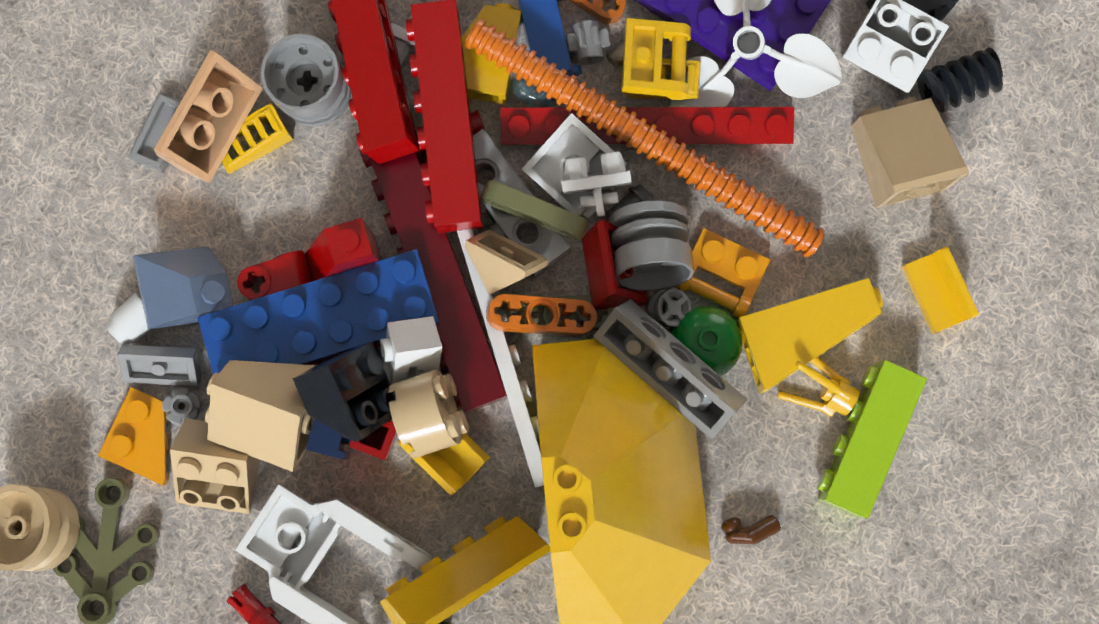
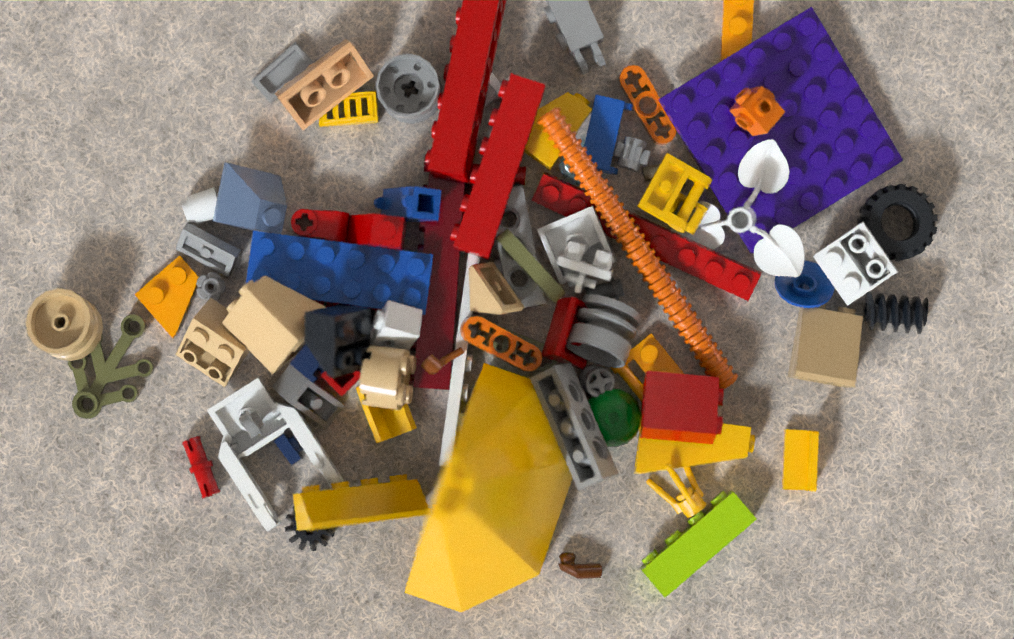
camera: 20 degrees right, 5 degrees up
(294, 541) = (252, 423): none -> light grey plate
(348, 479) = (308, 396): none -> light grey slope
(354, 549) = (290, 448): none -> dark blue plate
(367, 196) = (411, 202): none -> blue brick
(475, 375) = (433, 365): none -> dark orange hand
(781, 291) = (681, 407): none -> red brick
(851, 99) = (808, 289): none -> blue dish

